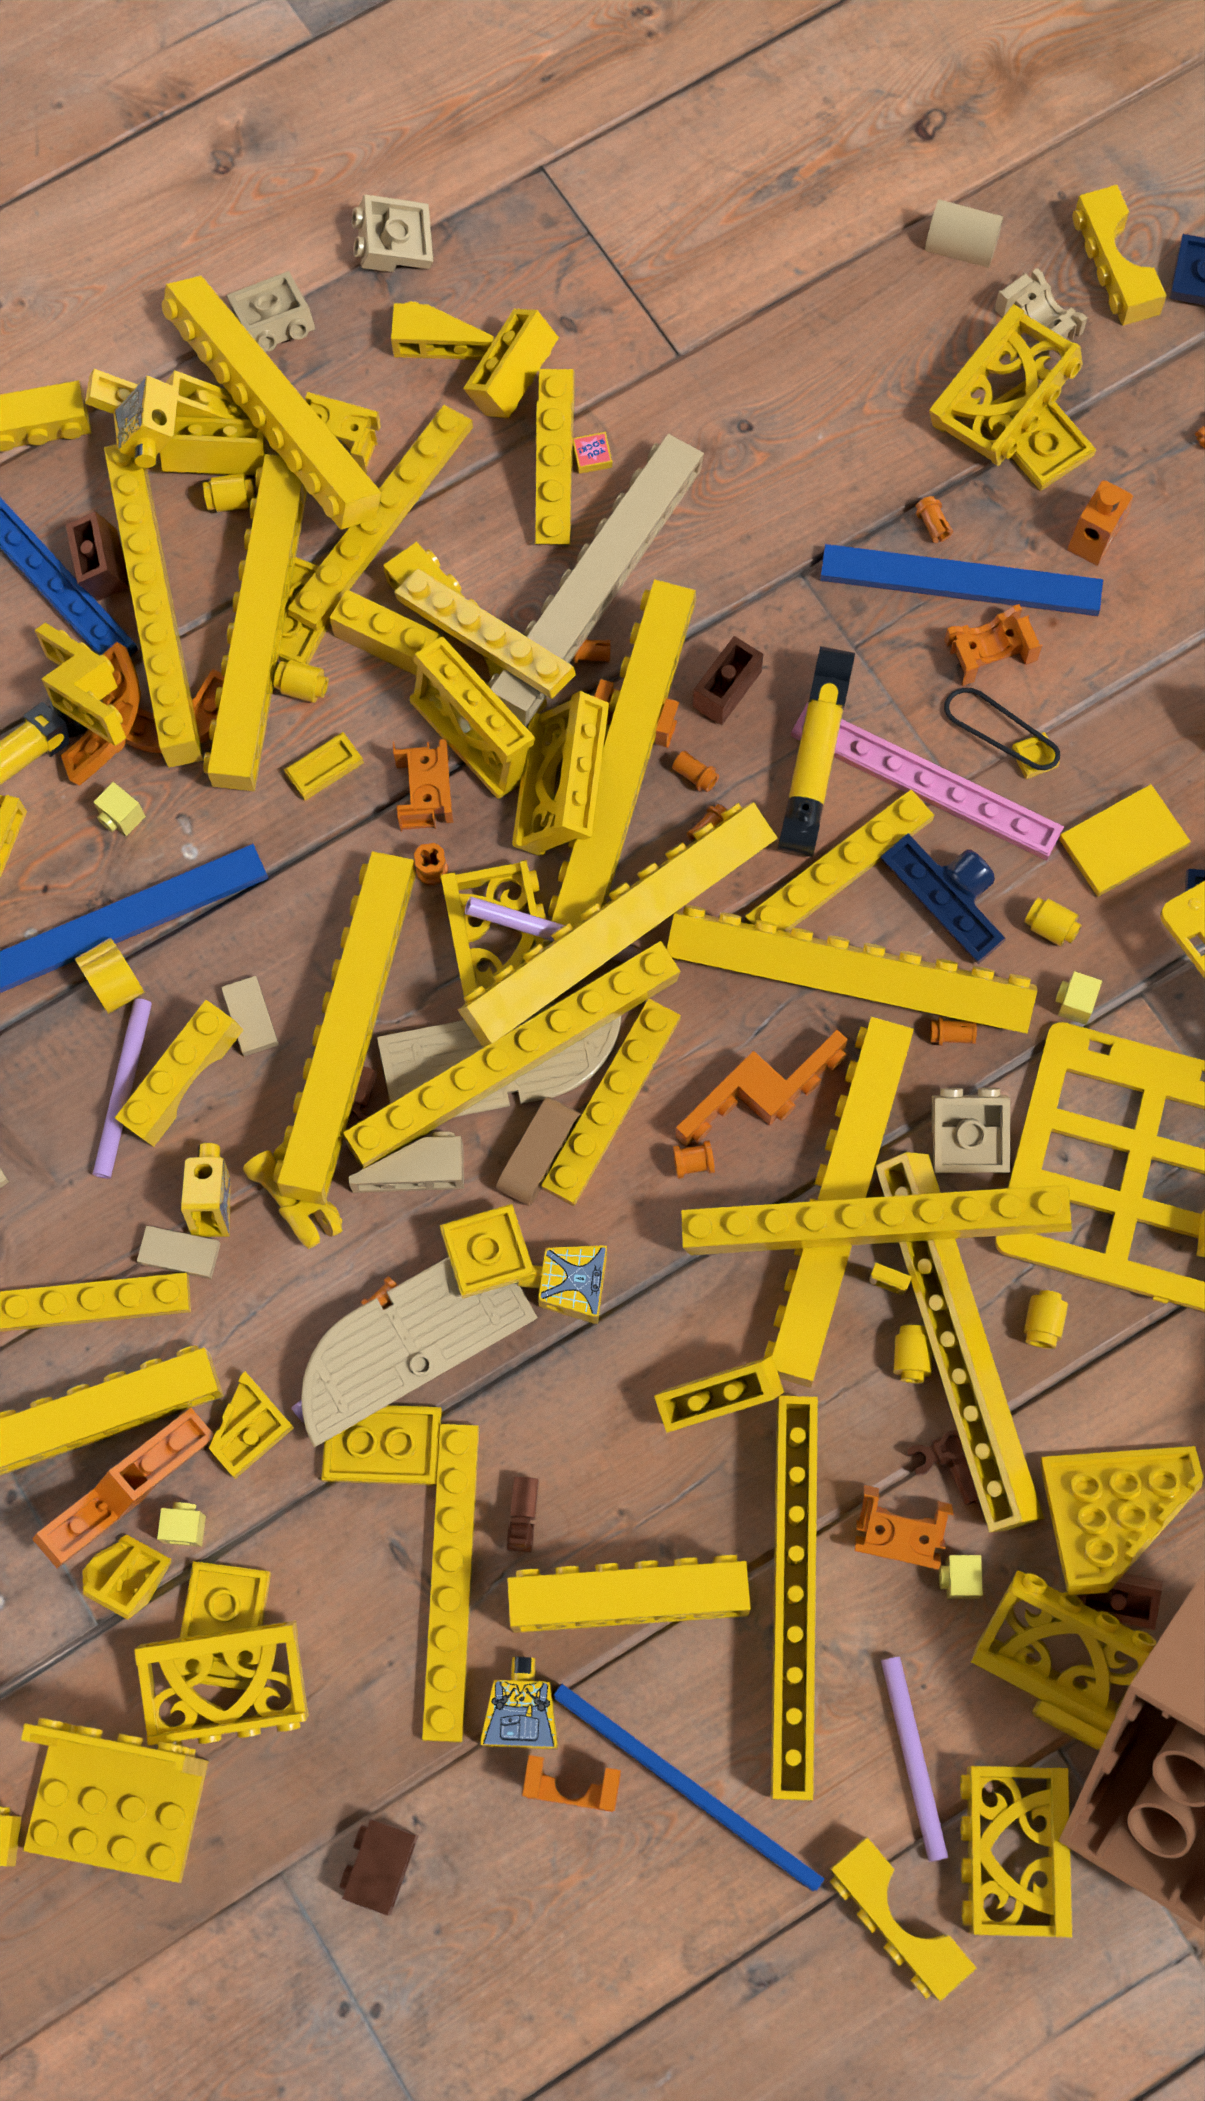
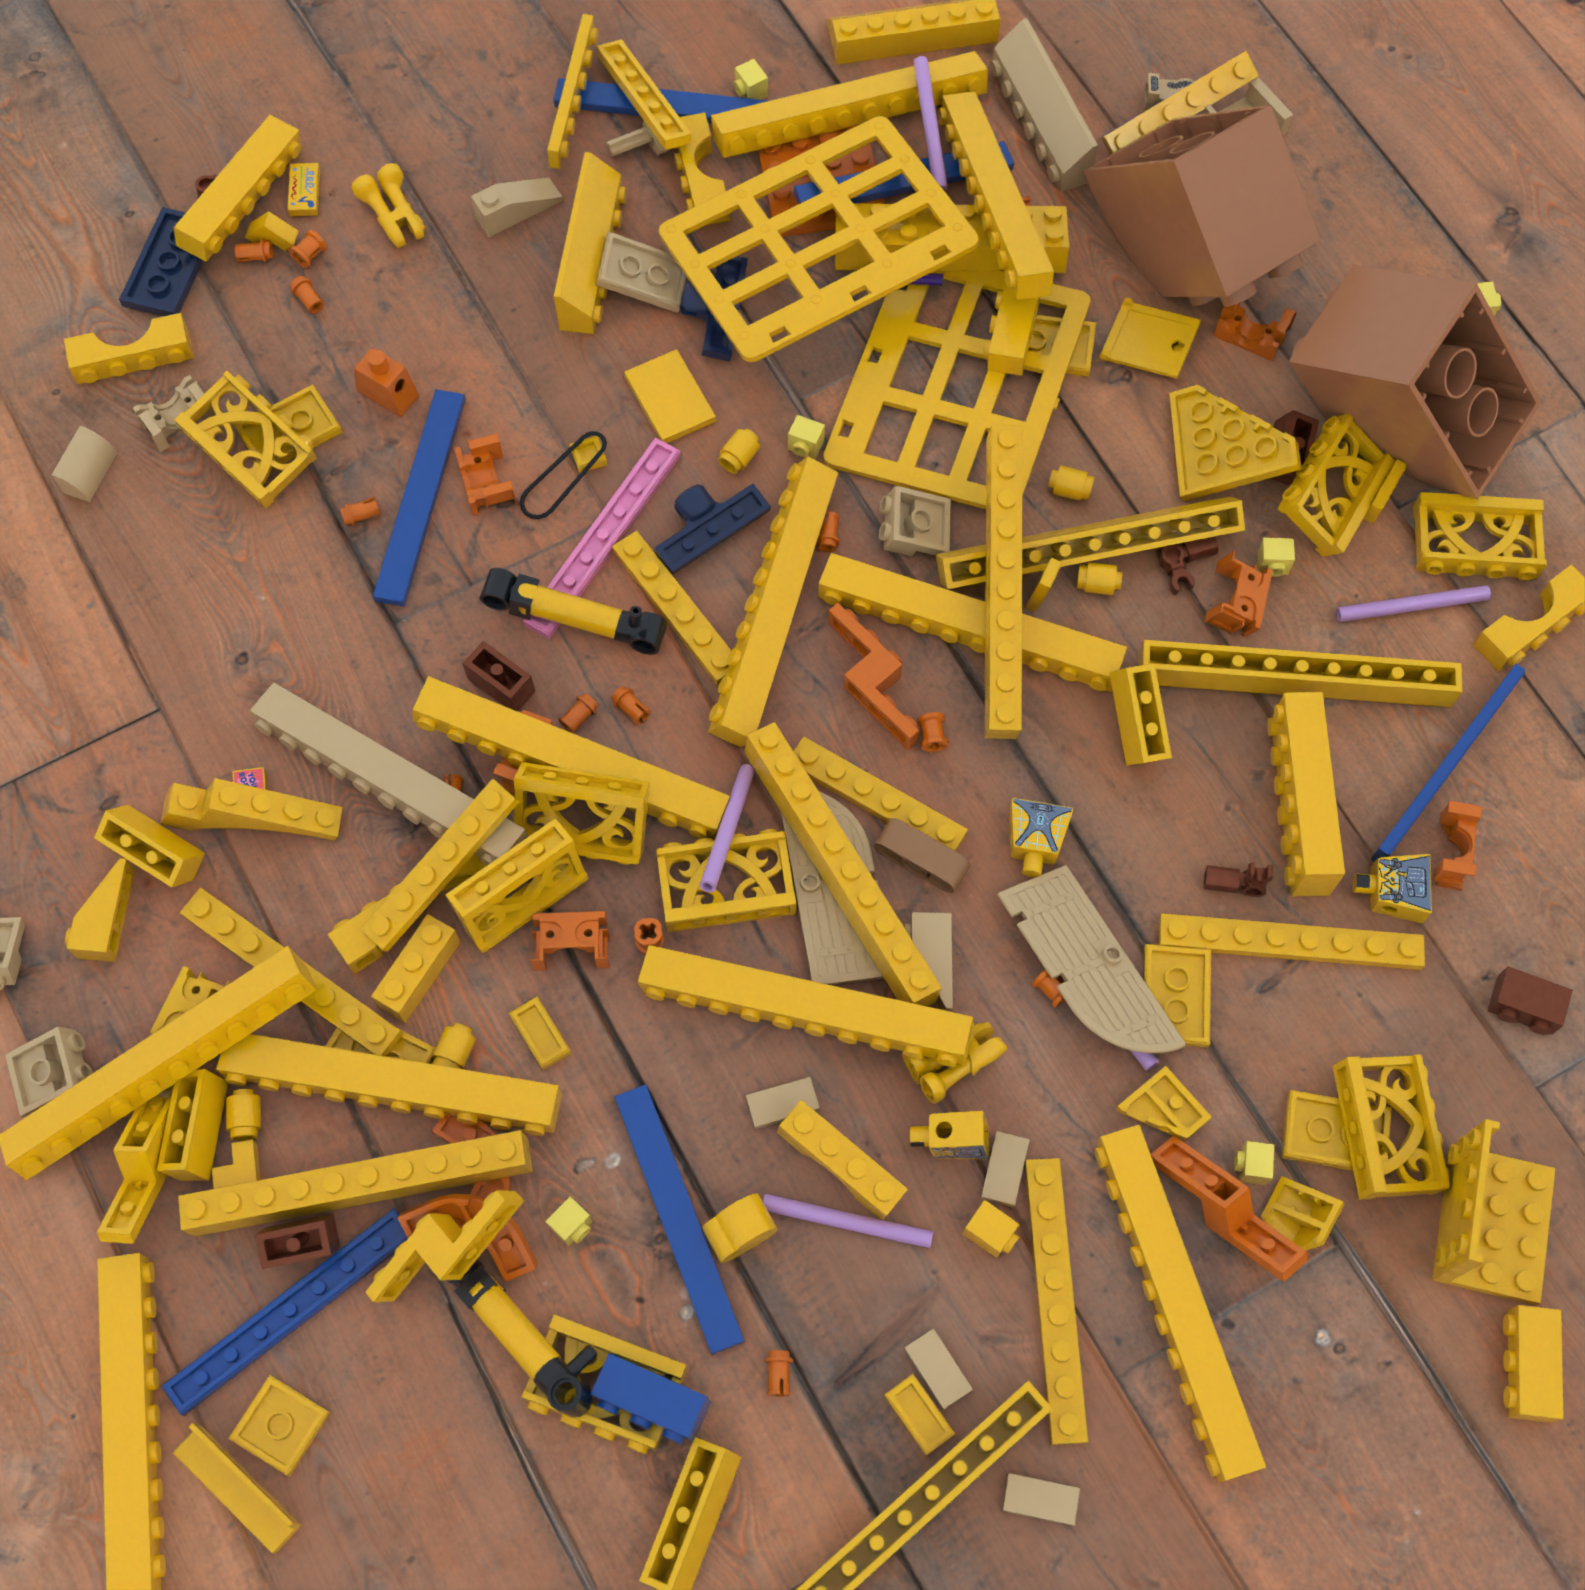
camera: 90 degrees left, 5 degrees down
(108, 1236) = (992, 1230): none -> yellow brick
(146, 421) = (169, 1176): yellow torso -> none
(176, 502) = (244, 1166): none -> yellow piece
(487, 1251) = (1016, 893): yellow tile -> none
(616, 924) = (729, 773): yellow brick -> none

